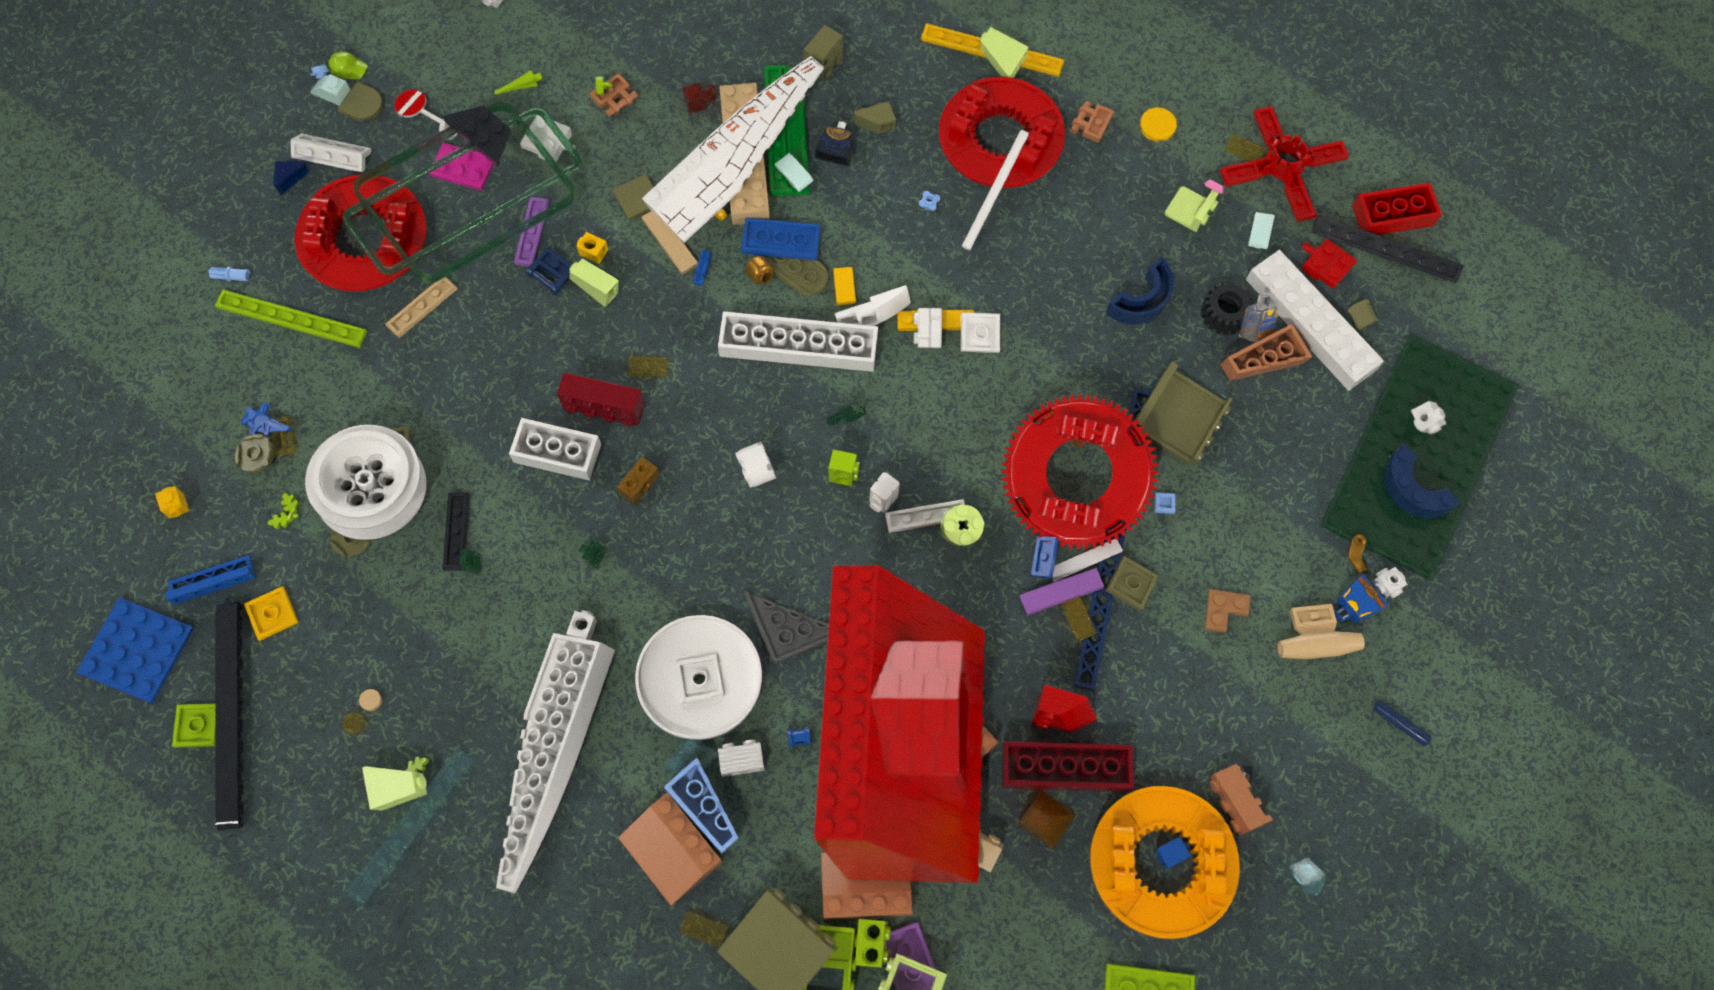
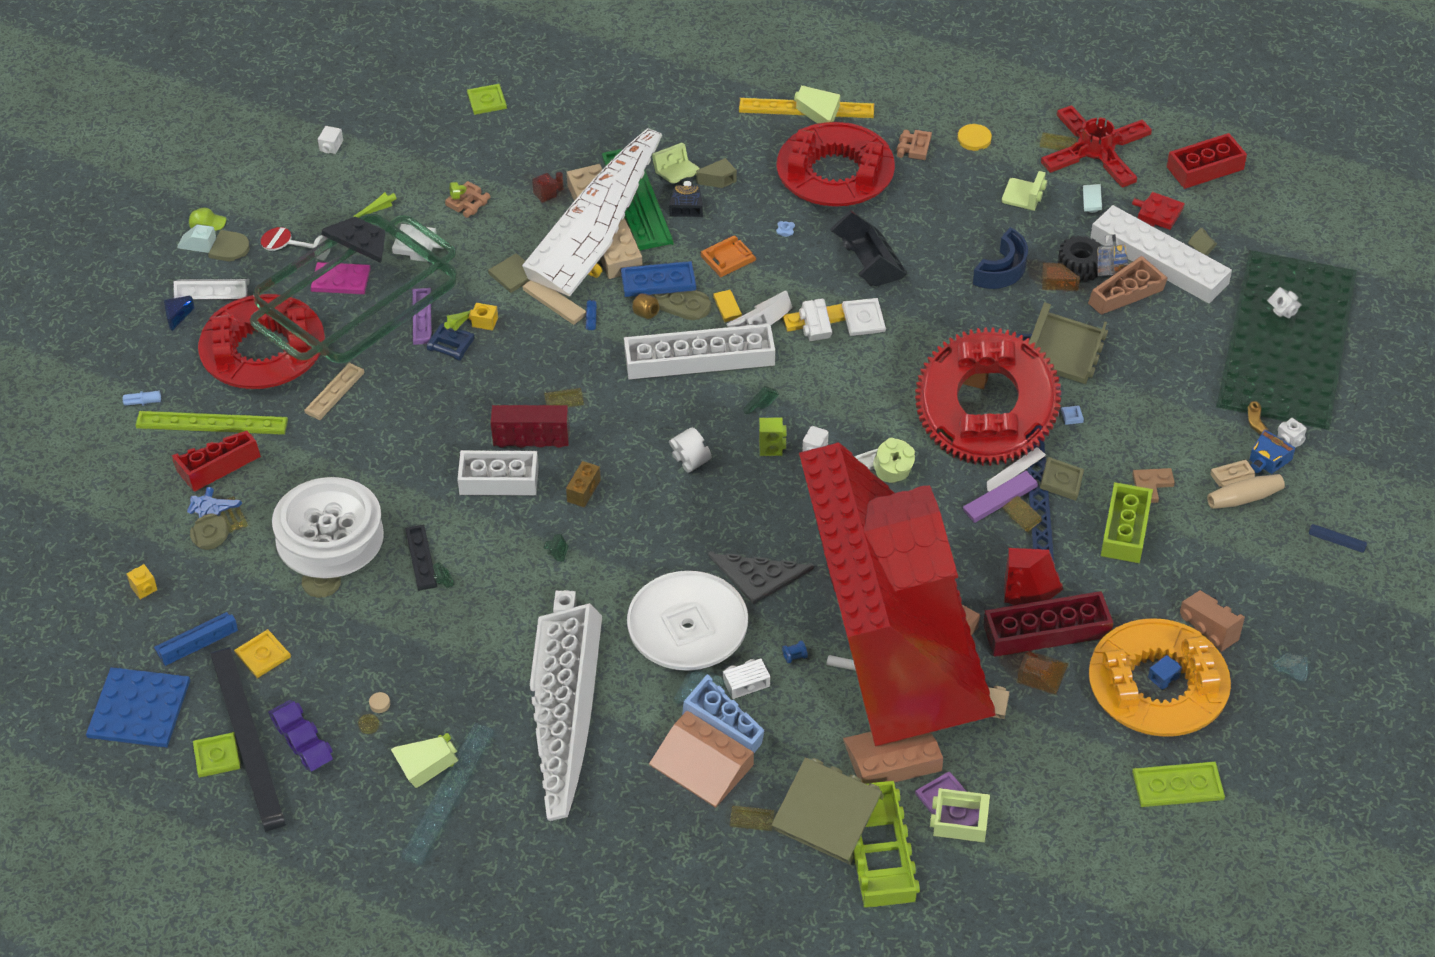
camera: 10 degrees left, 20 degrees down
(279, 370) = (216, 460): none -> red wedge
(280, 726) = (301, 735): none -> dark purple brick
(290, 506) = (254, 566): lime animal -> none
(320, 71) = (182, 227): light blue plate -> none
(559, 249) = (456, 320): none -> lime piece
(594, 281) = (496, 339): yellowish green slope -> none
(794, 172) = (656, 224): light aqua slope -> none
(826, 50) = (659, 121): olive brick -> none
(834, 97) = (673, 163): none -> yellowish green bracket
(864, 222) = (728, 255): none -> orange container
(866, 942) = (915, 790): lime brick -> none
(995, 189) = (834, 241): white piece -> none
(1013, 251) = (871, 248): none -> black windscreen
(1044, 557) = (976, 473): plate -> none
(1184, 658) = (1126, 522): none -> lime brick
(1197, 326) = (1058, 277): none -> clear orange slope
(1214, 186) = (1036, 167): bright pink tile -> none
(1387, 248) = (1208, 190): black plate -> none
(1409, 494) = (1289, 363): dark blue brick -> none

